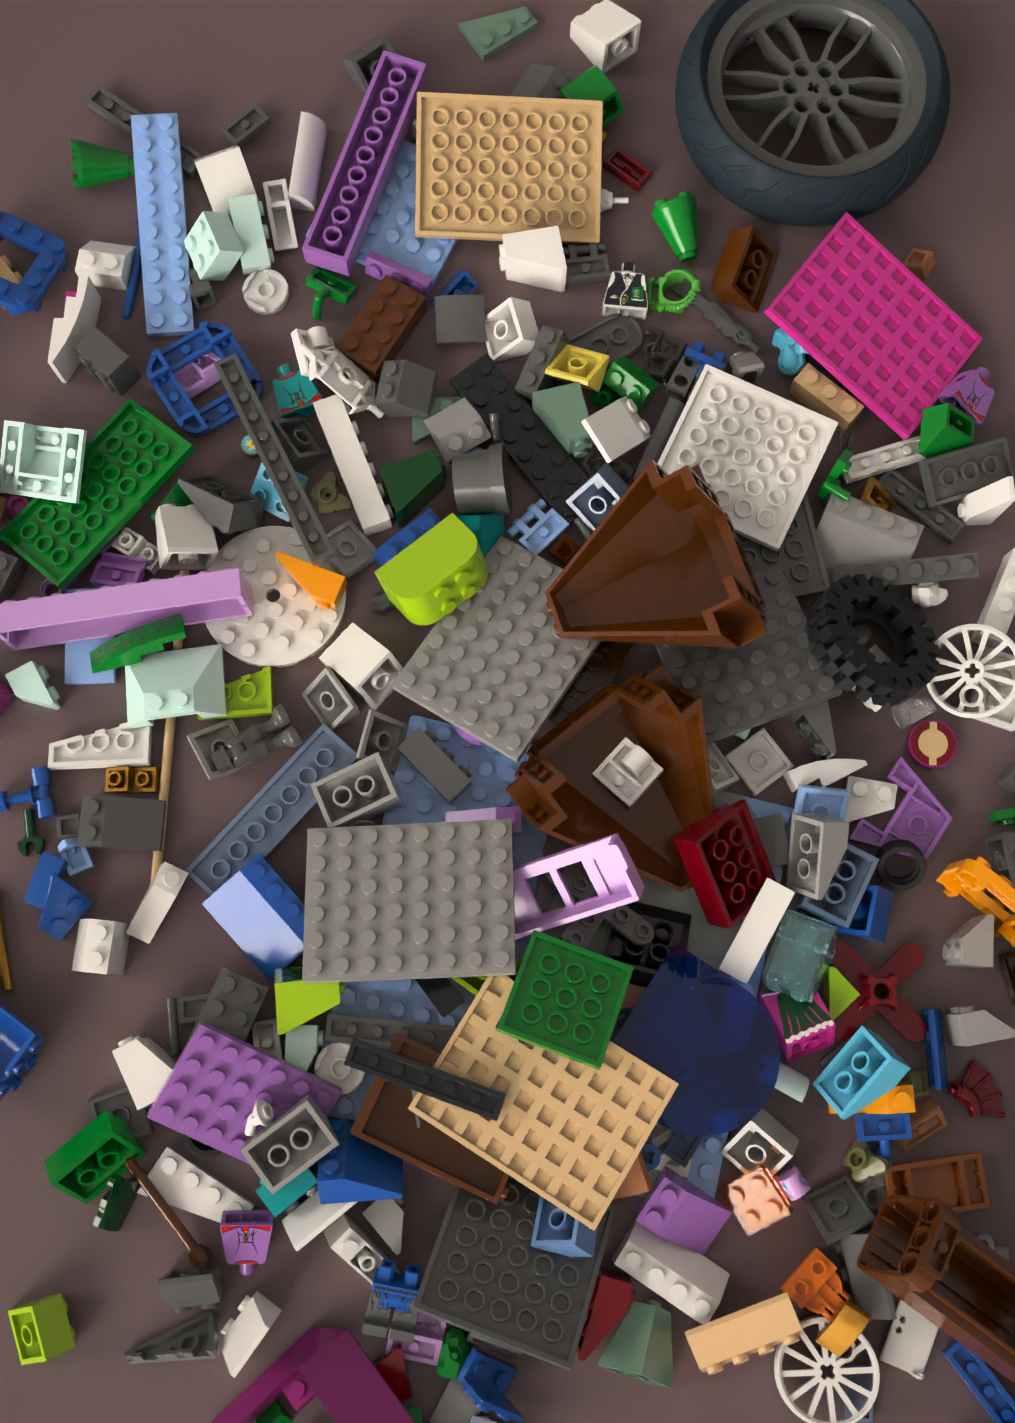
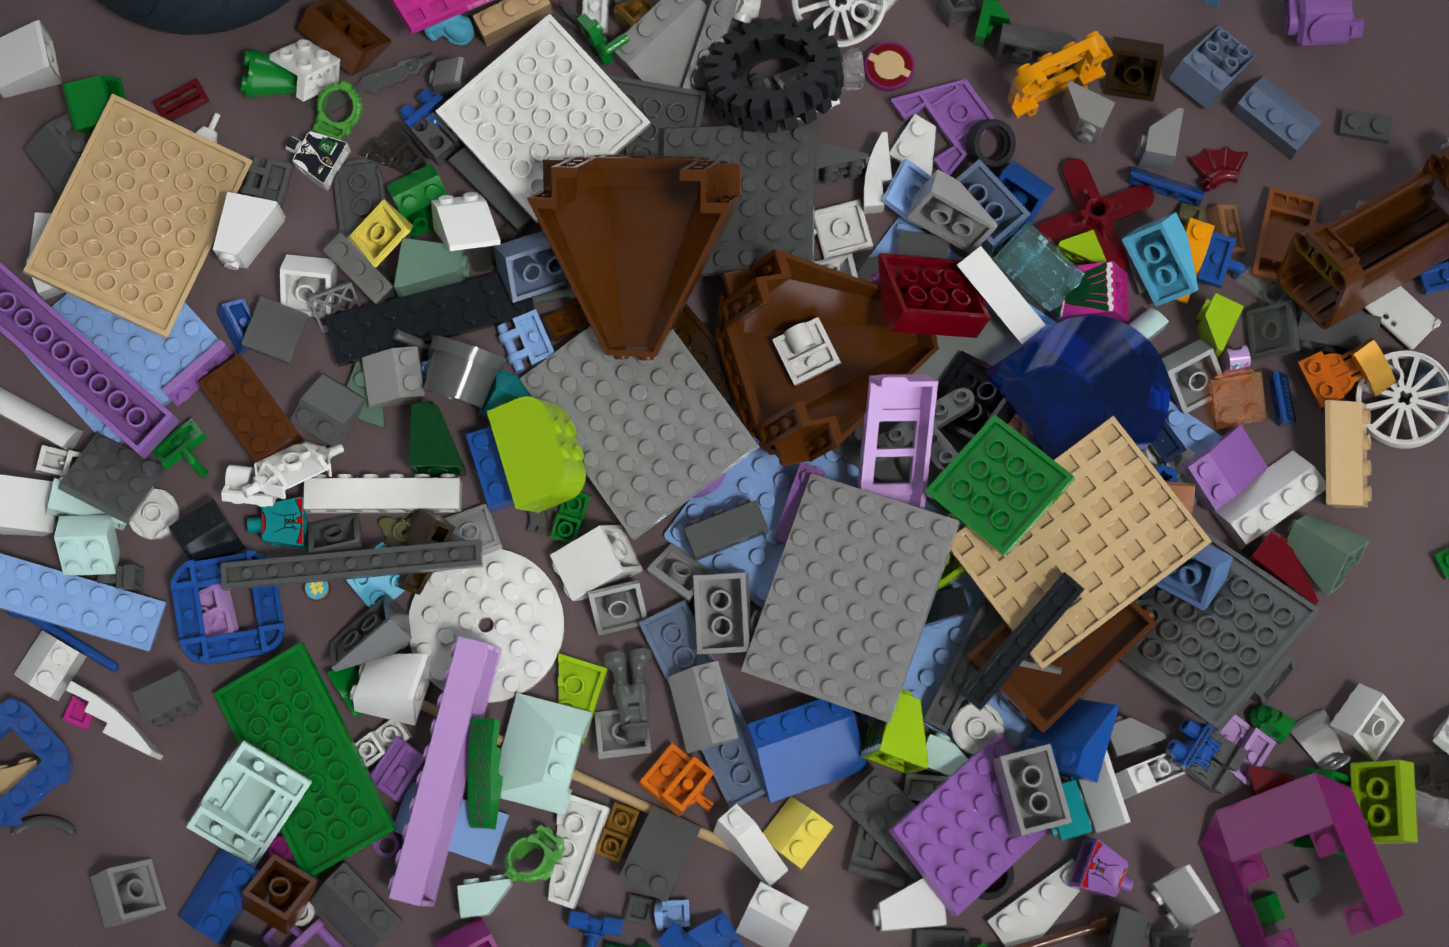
camera: 65 degrees left, 0 degrees up
(91, 729) = (542, 840): none -> bright green piece
(185, 938) = (797, 832): none -> light yellow slope
(193, 813) = (678, 781): none -> orange plate
(261, 1114) = (995, 808): white plate -> none
(262, 337) = (206, 533): none -> black slope
(265, 810) = (703, 707): none -> light grey slope
(275, 241) = (112, 478): none -> dark grey plate
(320, 584) = (497, 573): light orange slope -> none
(333, 513) = (426, 529): none -> dark brown slope
(395, 629) = (570, 518): none -> green slope
(487, 347) = (331, 291): none -> dark grey window
(487, 1382) = (1305, 695): blue bracket -> none
(701, 249) = (311, 64): none -> white bracket
(775, 1244) = (1282, 399): none -> blue slope
(821, 1151) = (1217, 321): none -> lime slope
(863, 1162) = (1241, 290): olive animal -> none

